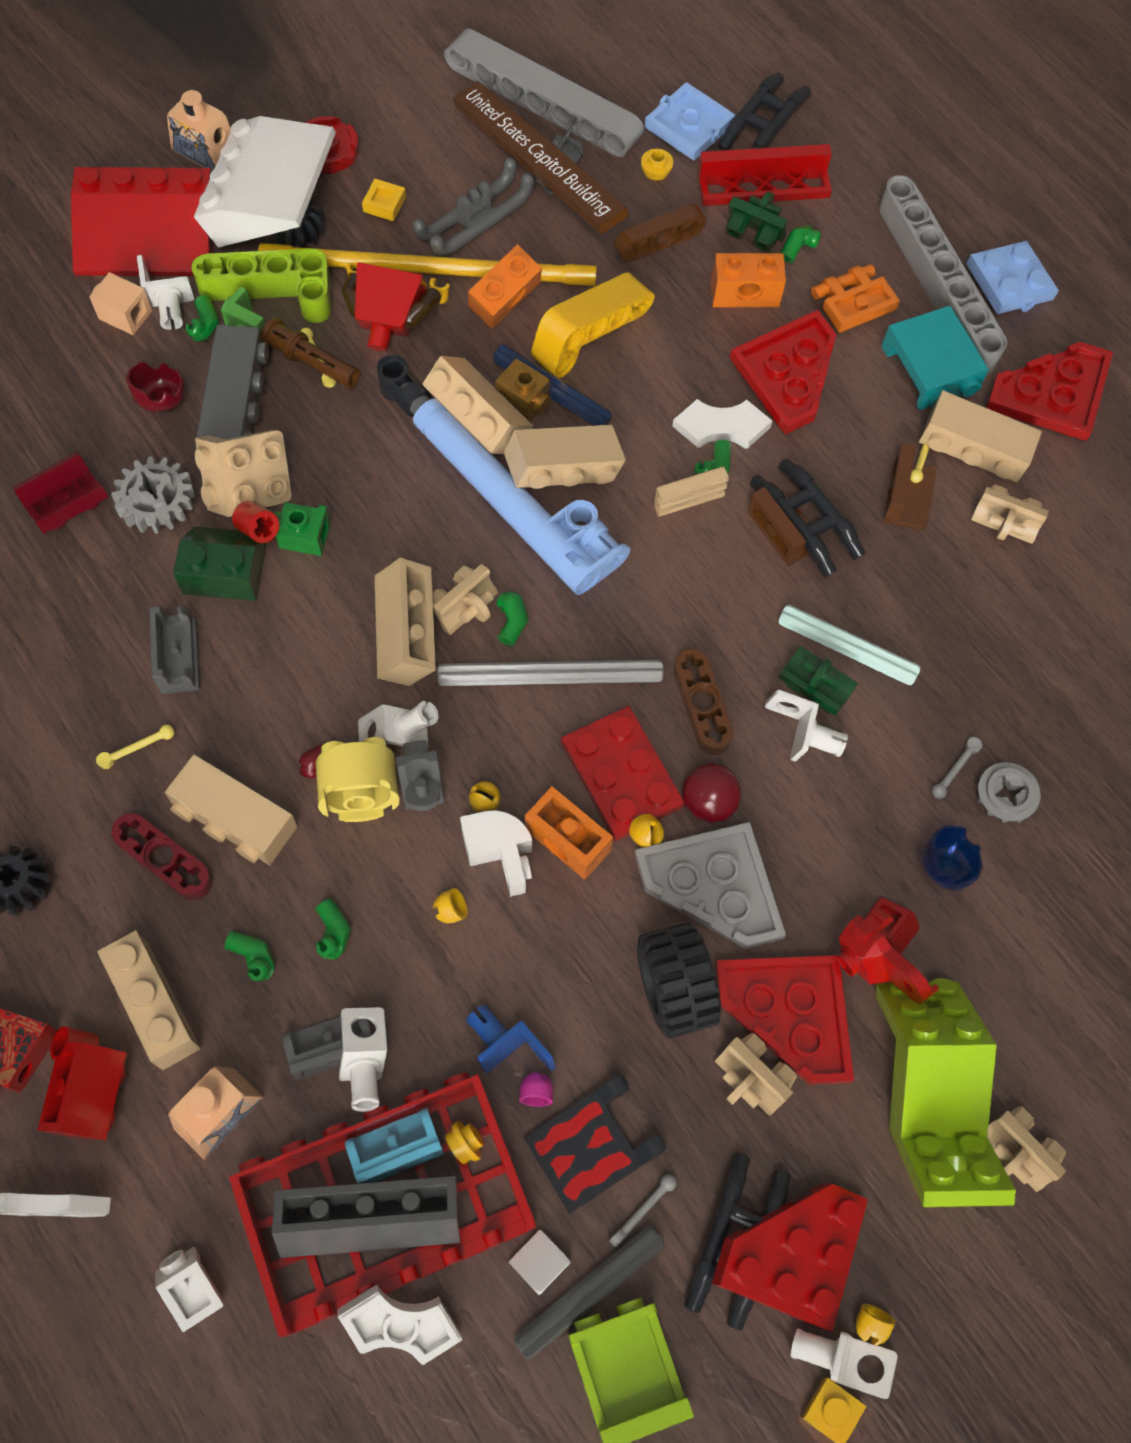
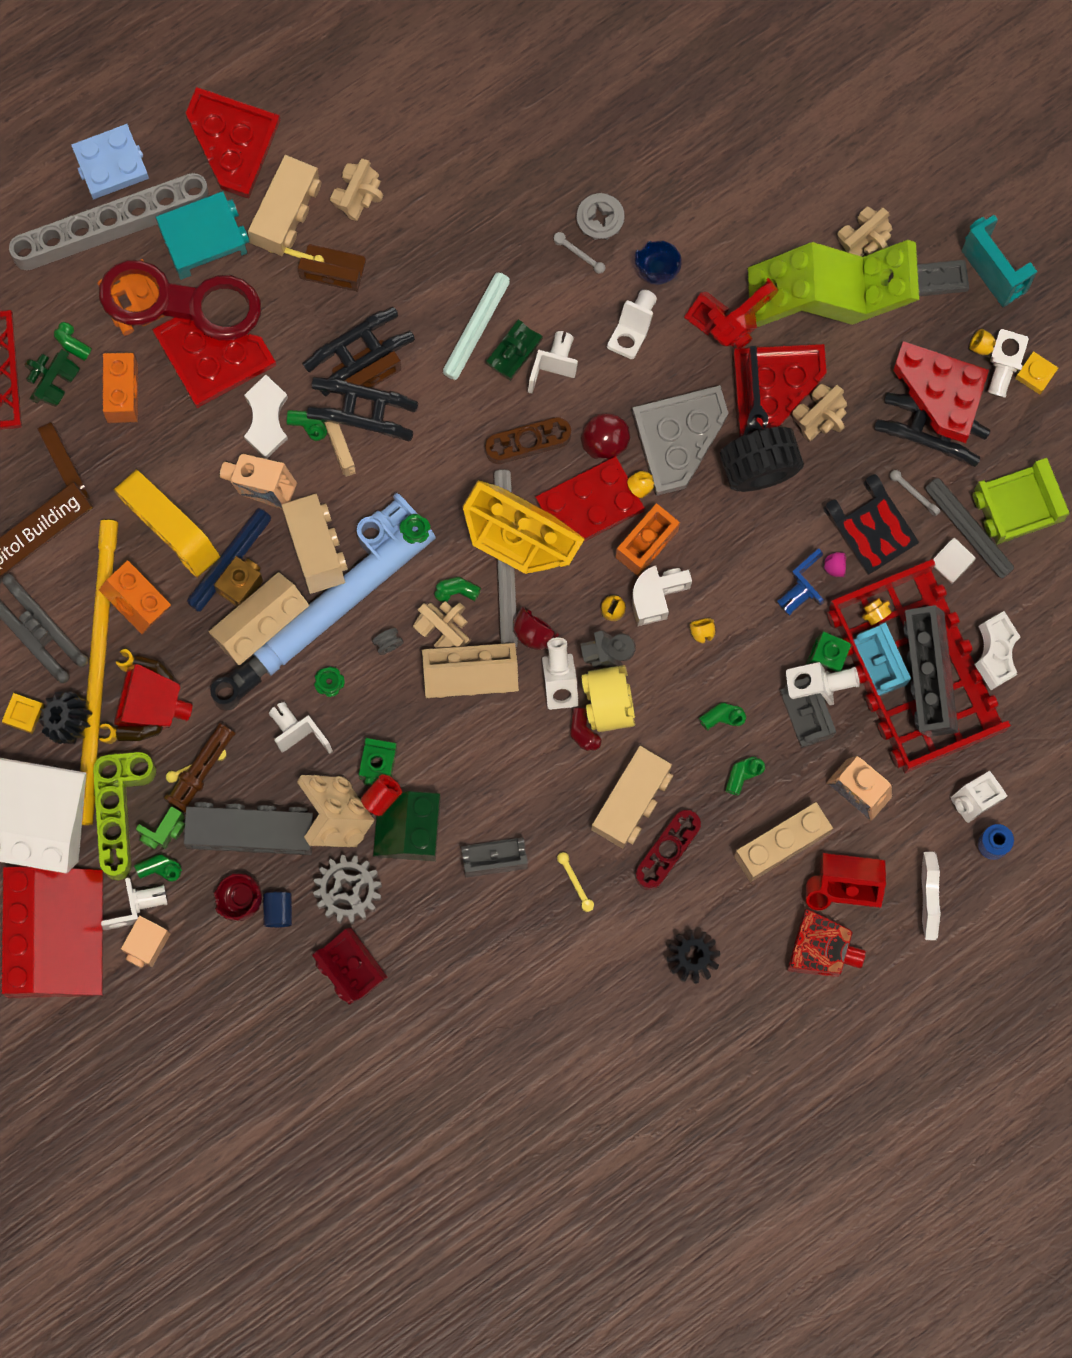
camera: 90 degrees left, 10 degrees up
(125, 1308) = (989, 848): none -> blue brick
(139, 427) = (277, 909): none -> dark blue beam
(346, 446) = (293, 730): none -> white bracket
(373, 229) = (65, 718): none -> black gear
(401, 474) = (325, 674): none -> green plate
(404, 1069) = (829, 651): none -> green bracket
(448, 540) = (387, 641): none -> dark grey bush
(454, 696) = (532, 630): none -> dark red hair
(579, 547) = (418, 521): none -> green plate
(582, 670) = (518, 530): none -> yellow wedge
(643, 394) = (260, 479): none -> light nougat torso
(715, 524) = (347, 416): none -> black piece
(769, 965) = (753, 394): none -> black flag
(853, 332) = (179, 300): none -> dark red bar
(865, 828) = (633, 323): none -> white bracket
(966, 1361) = (993, 266): none -> teal panel
(968, 1255) = (942, 278): none -> dark grey plate

